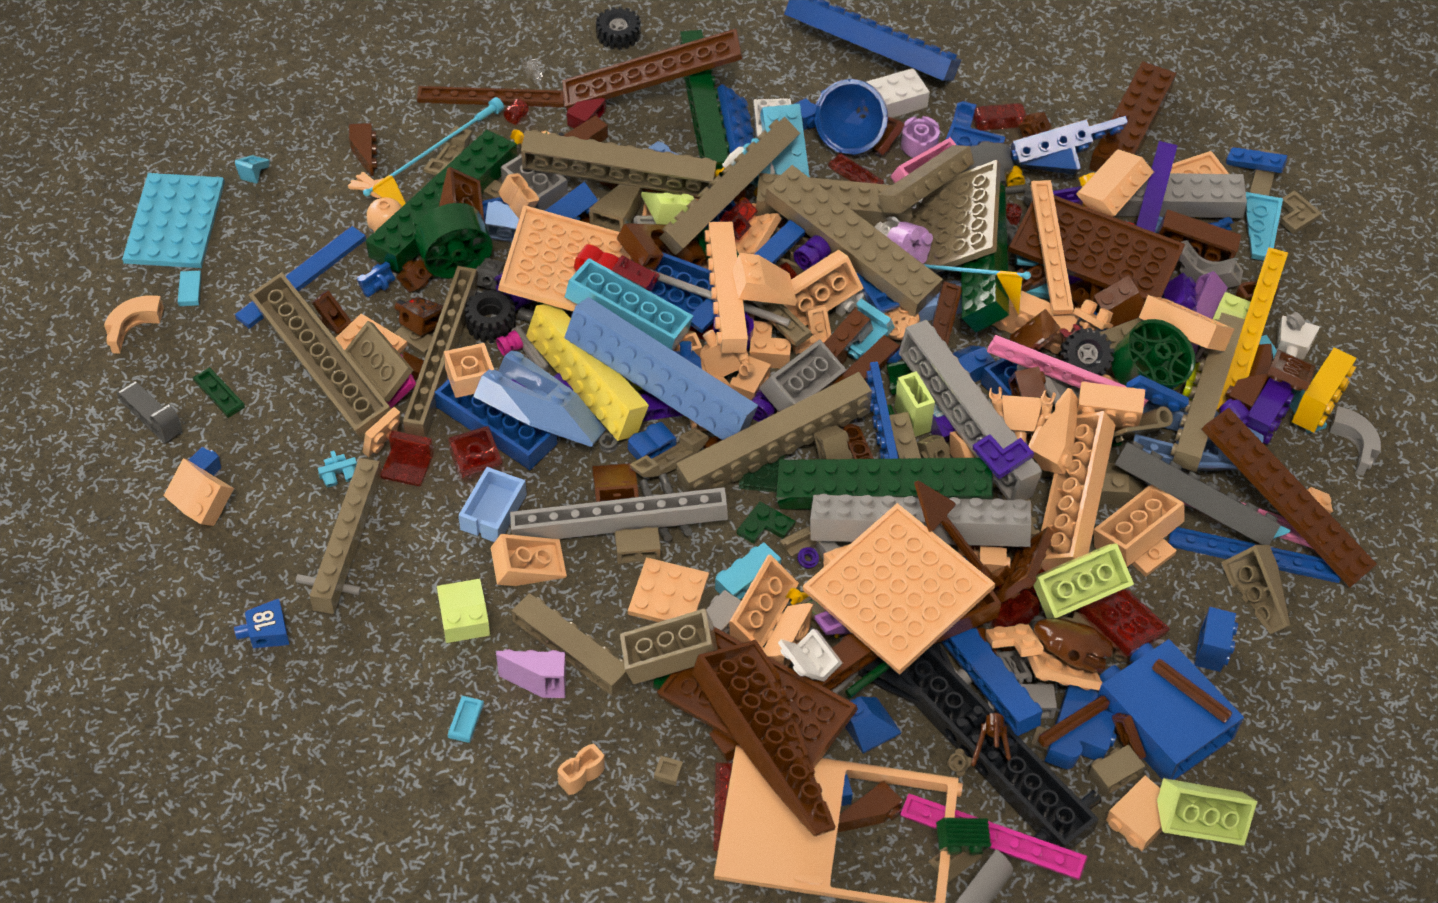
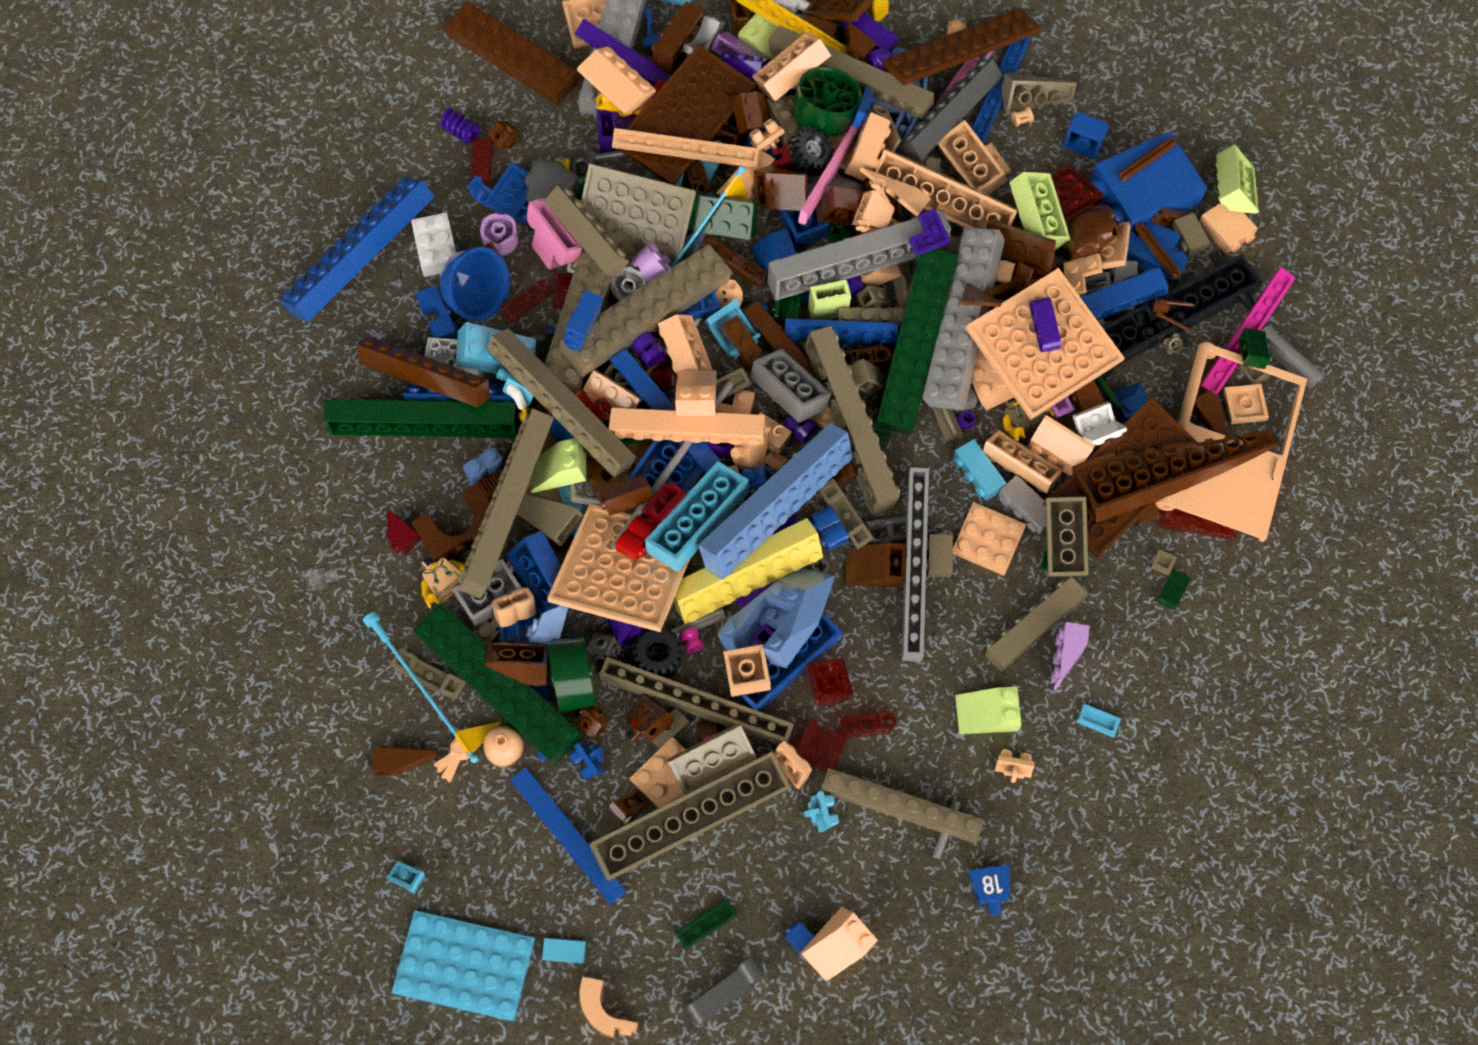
camera: 80 degrees left, 15 degrees up
(399, 636) = (1013, 766): none -> light nougat hips
(434, 490) = (874, 719): none -> clear red beam
(482, 96) = (348, 627): reddish brown tile -> none
(490, 504) = (885, 672): light blue piece -> none
(516, 111) = (381, 602): clear red wheel -> none
(527, 560) = (945, 651): light nougat slope -> none
(583, 768) = (1166, 632): light nougat brick -> none
(618, 28) = (279, 477): black wheel -> none
(636, 785) = (1173, 590): none -> dark green slope
(654, 68) = (370, 456): reddish brown plate -> none
(747, 93) = (423, 371): none -> reddish brown brick
(762, 519) = (920, 449): dark green plate -> none
(807, 166) = (582, 320): none -> blue brick
(818, 325) = (720, 363): light nougat plate -> none
(897, 849) = (1245, 404): none -> light nougat plate
(915, 574) = (1045, 324): none -> dark purple beam
(1034, 92) = (458, 126): none -> dark purple piece
(1058, 148) = (546, 119): wedge -> none
(1222, 578) = (1022, 116): none -> light nougat bush

